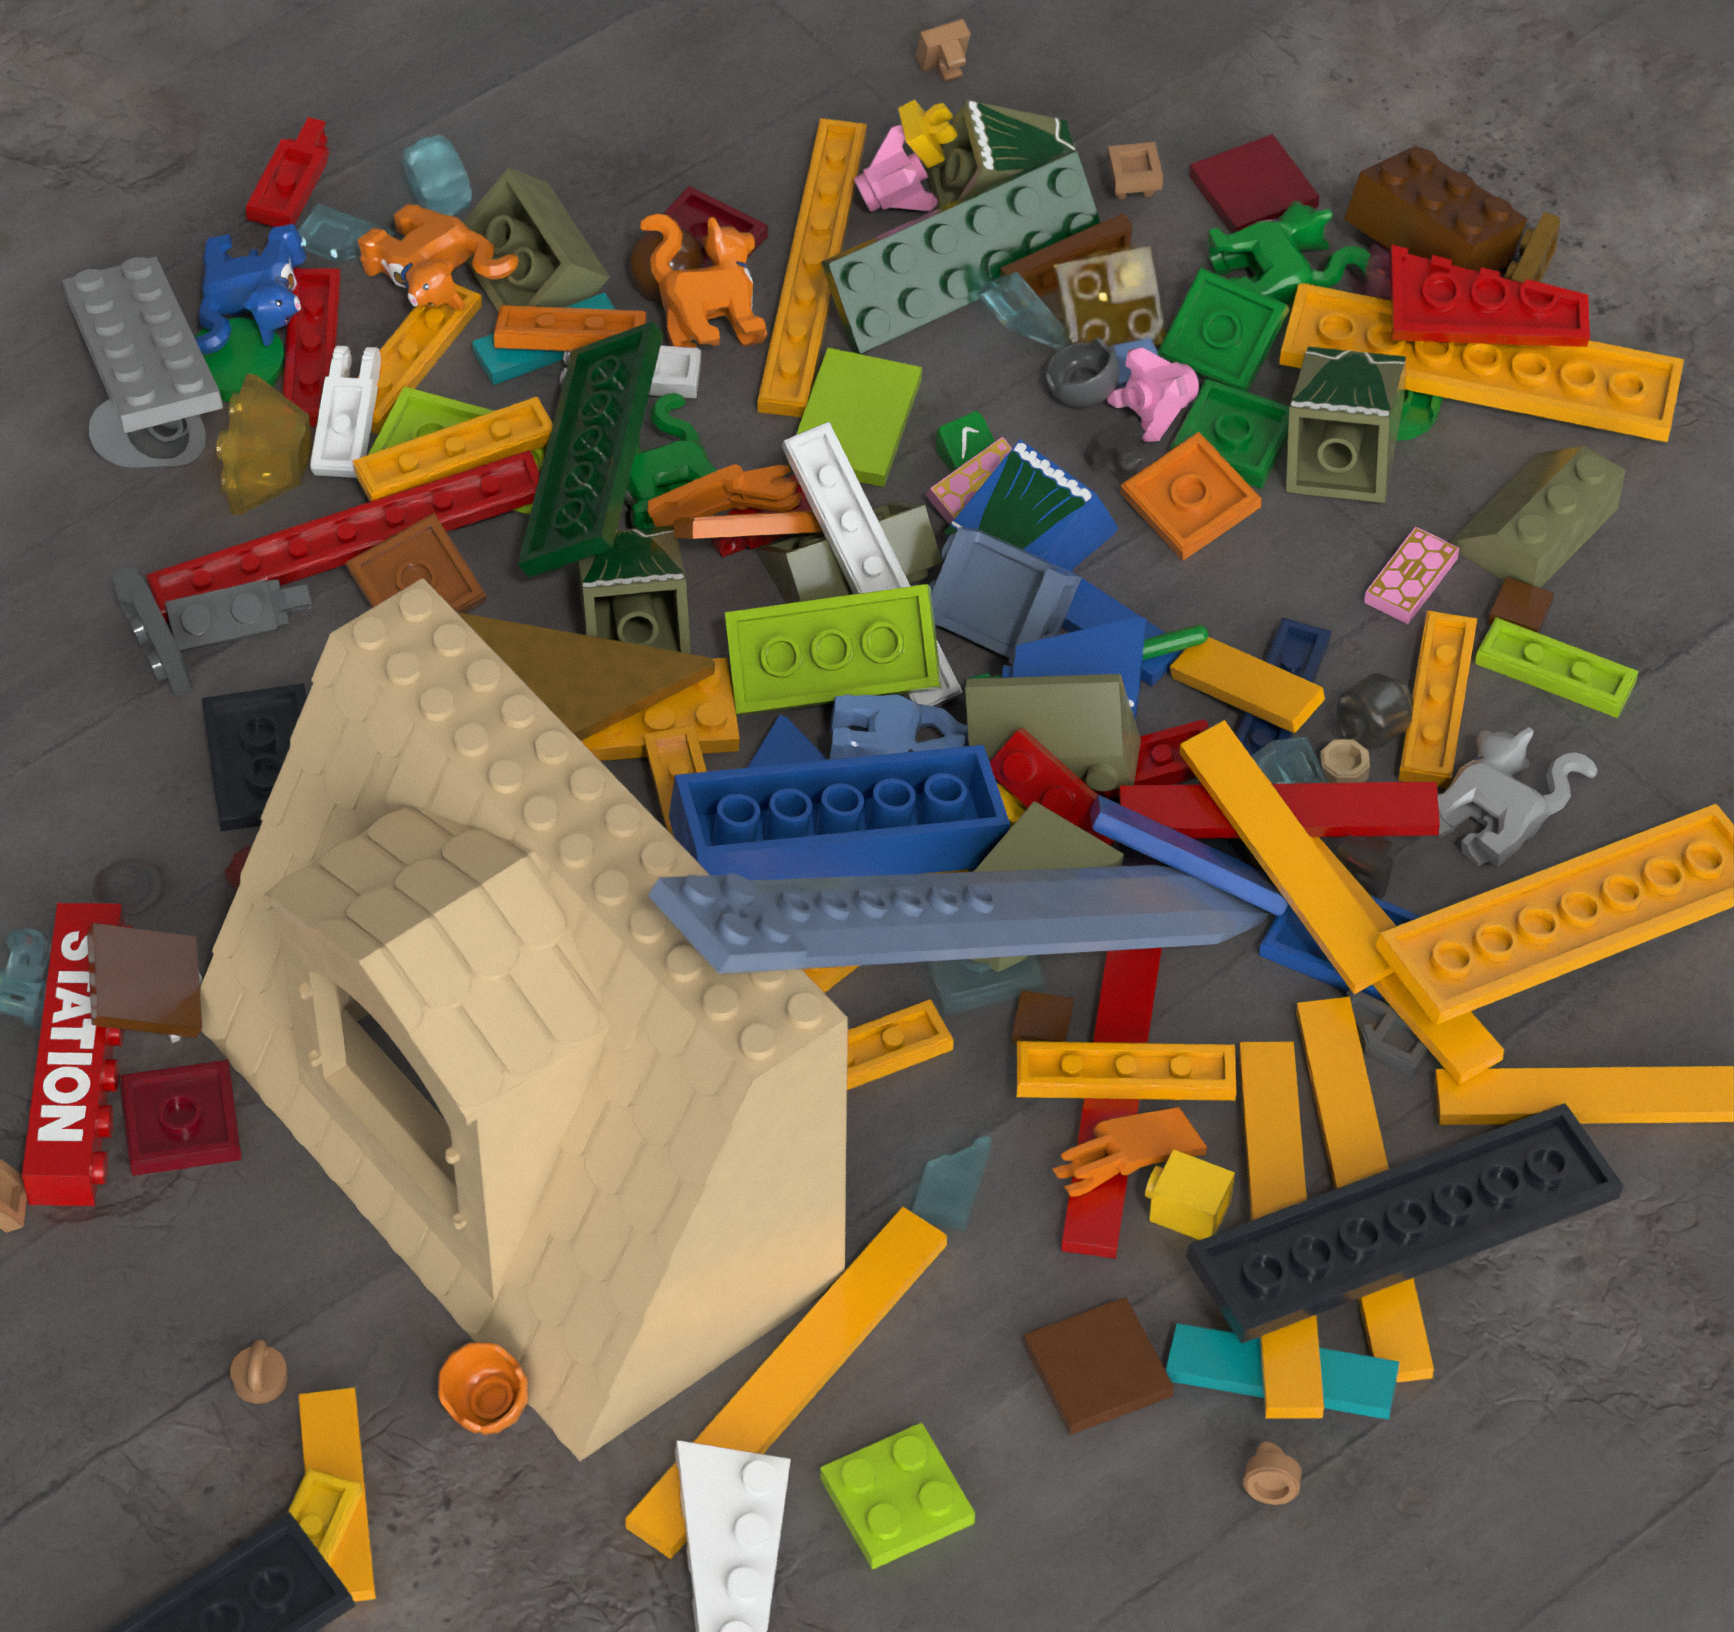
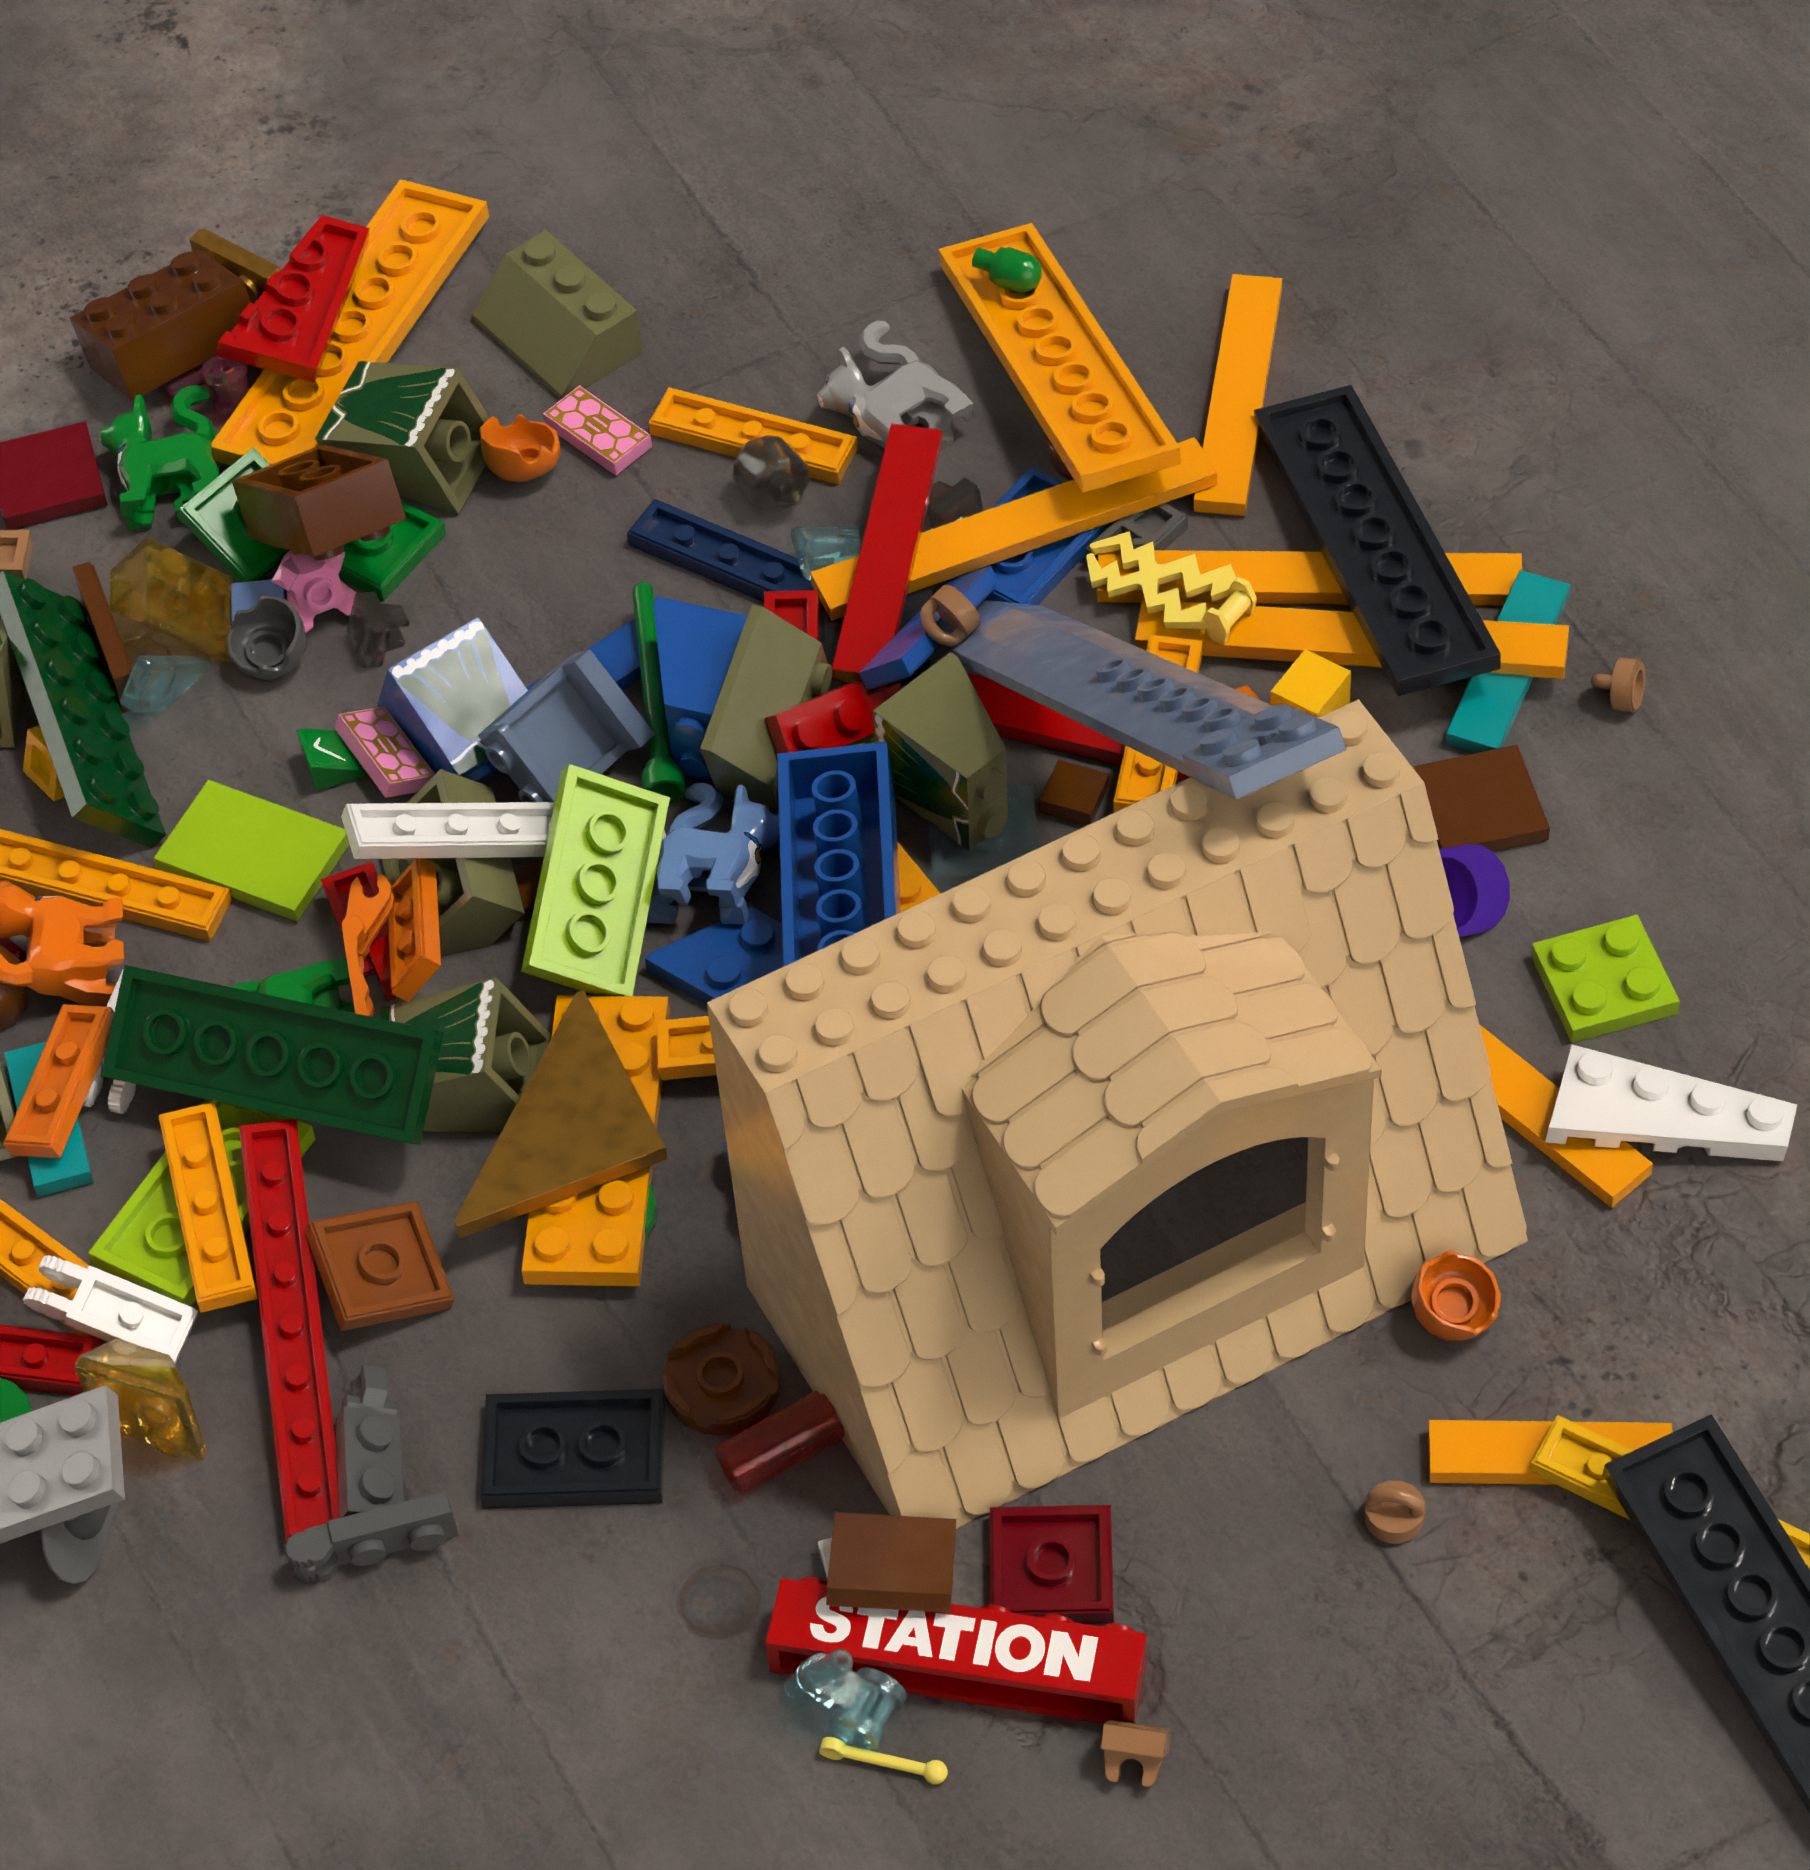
camera: 75 degrees left, 0 degrees up
(961, 1342) = (1476, 887): none -> dark purple piece
(1172, 849) = (955, 611): none -> medium nougat tile
(1190, 496) = (452, 580): orange tile -> none
(1210, 352) = (320, 501): none -> reddish brown brick
(1248, 683) = (720, 555): light orange tile -> none
(1287, 855) = (952, 546): light orange tile -> none
(1312, 1092) = (1151, 574): none -> light yellow piece
(1345, 761) = (821, 508): tan tile -> none
(1360, 510) = (520, 449): none -> orange hair
(1522, 604) = (661, 356): reddish brown tile -> none
(1556, 667) = (738, 342): lime tile -> none
(1681, 853) = (1009, 268): none -> green cylinder

